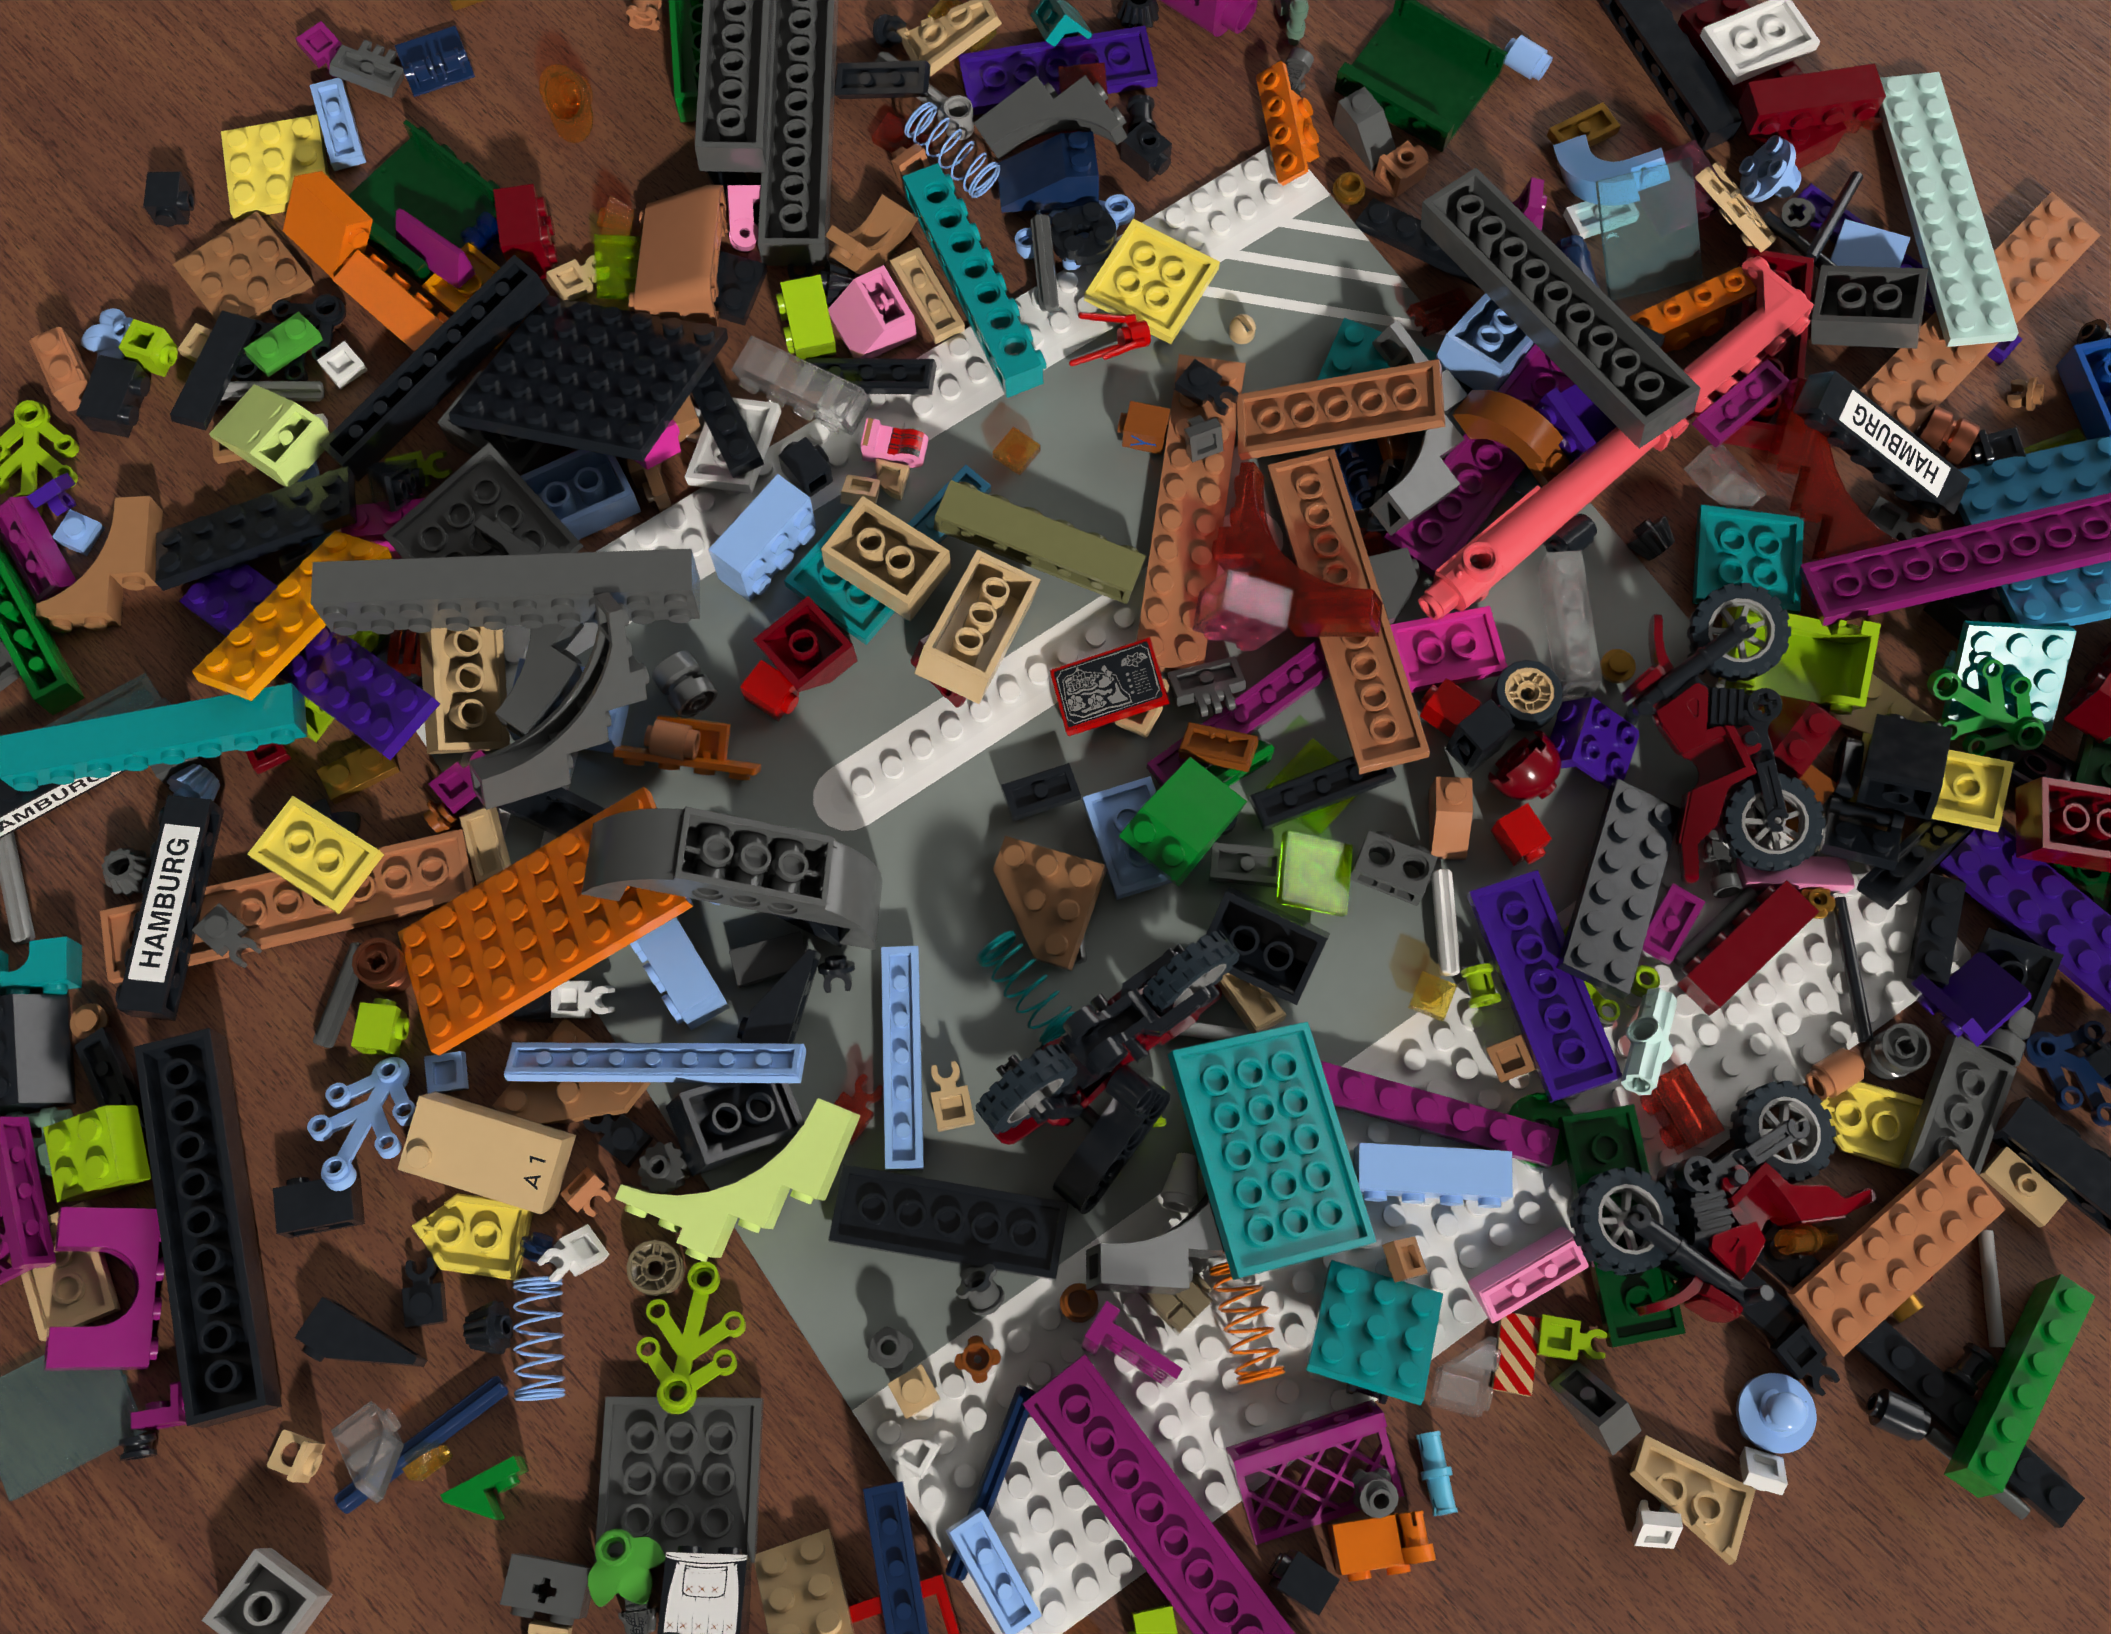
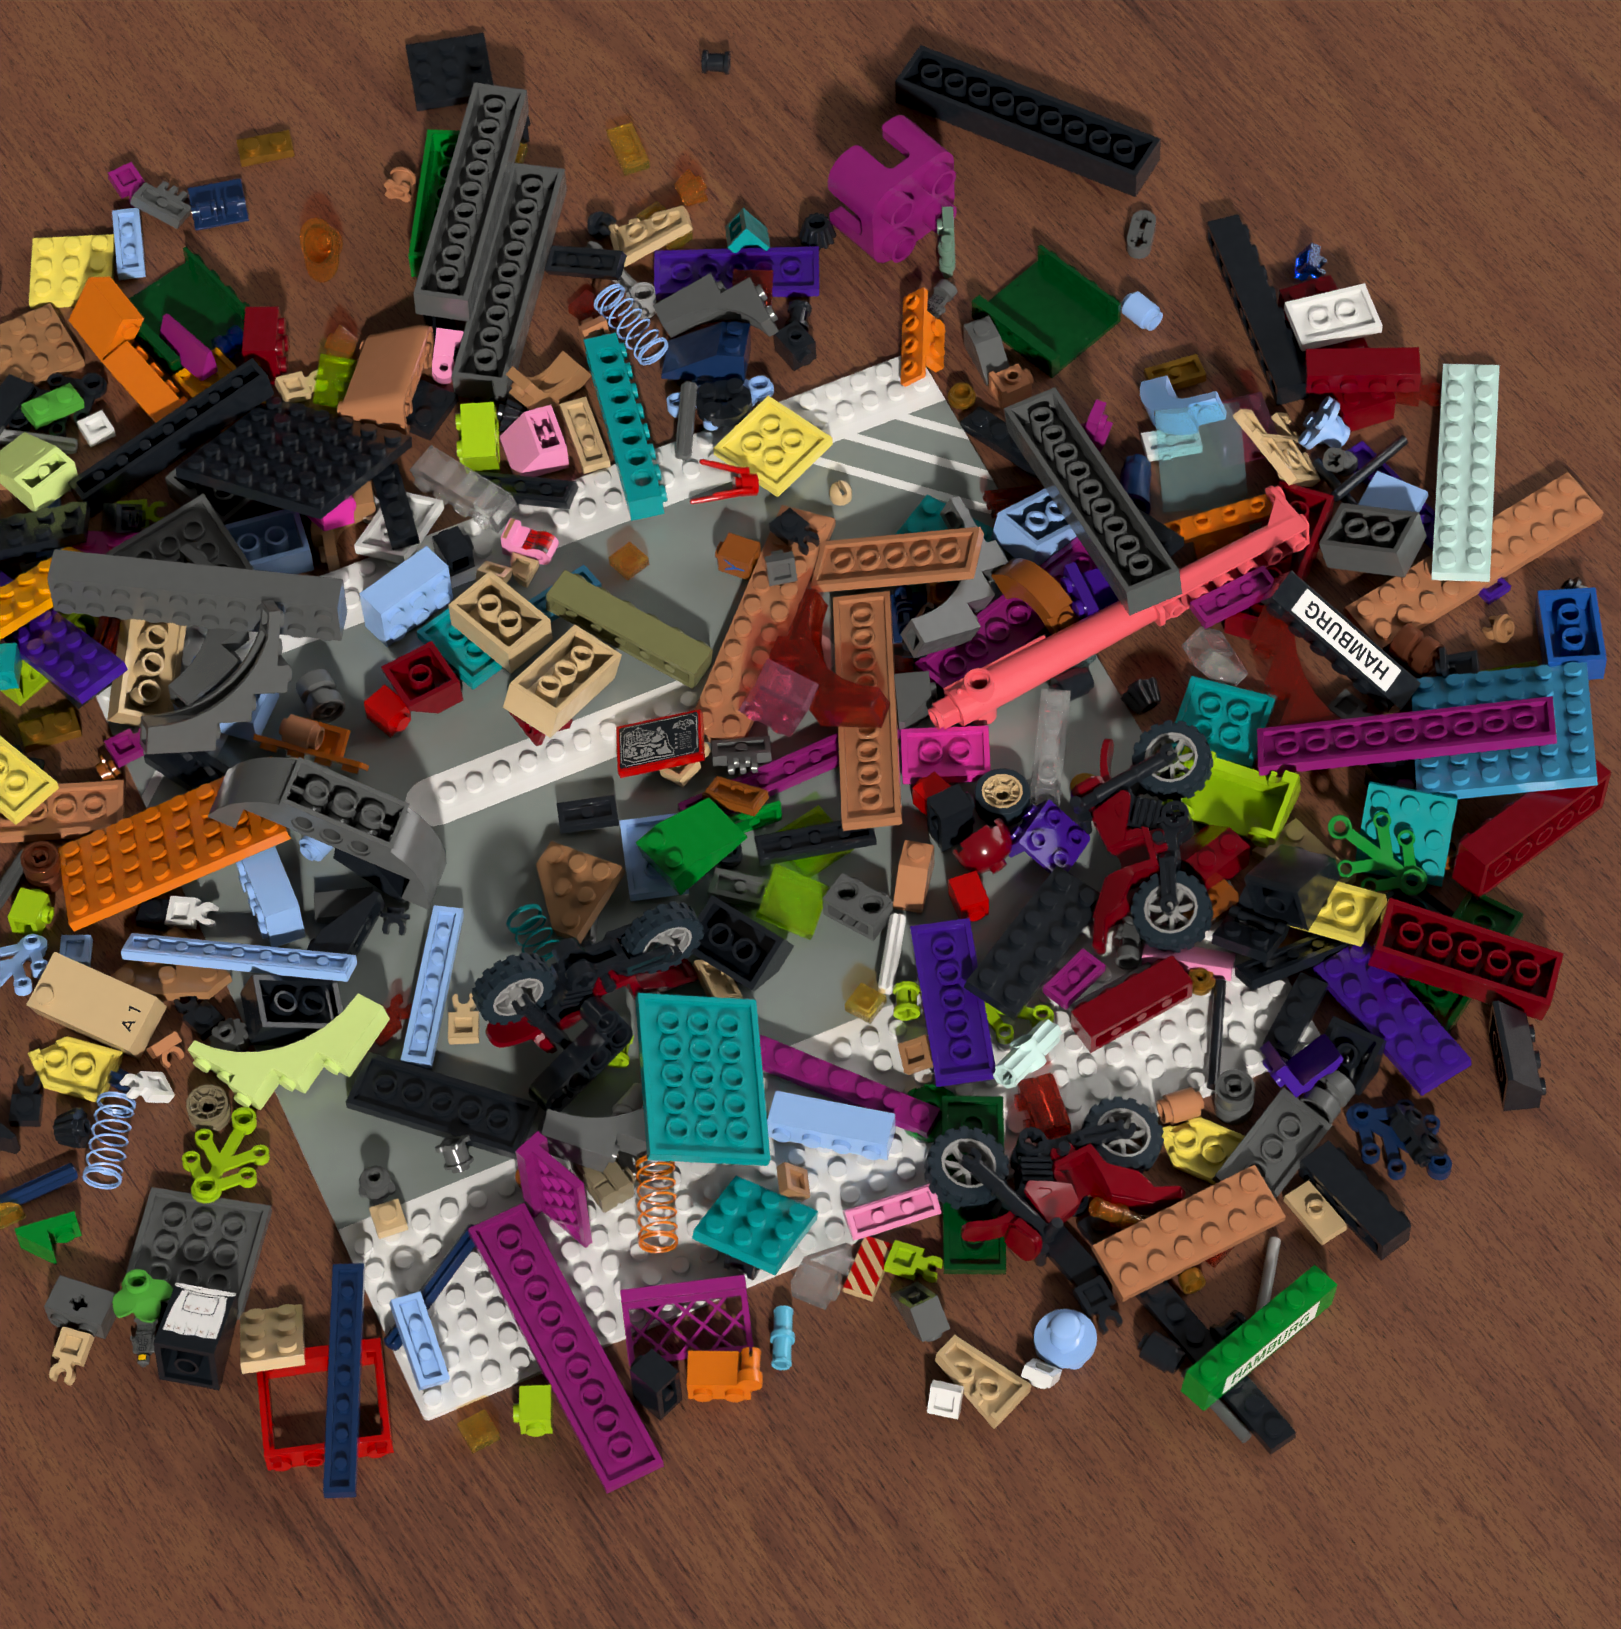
camera: 15 degrees right, 15 degrees down
(485, 843) = (139, 789): tan tile -> none
(916, 1455) = (380, 1262): white tile -> none
(977, 1370) = (440, 1195): dark orange plate -> none
(1371, 1484) = (720, 1344): dark grey brick -> none

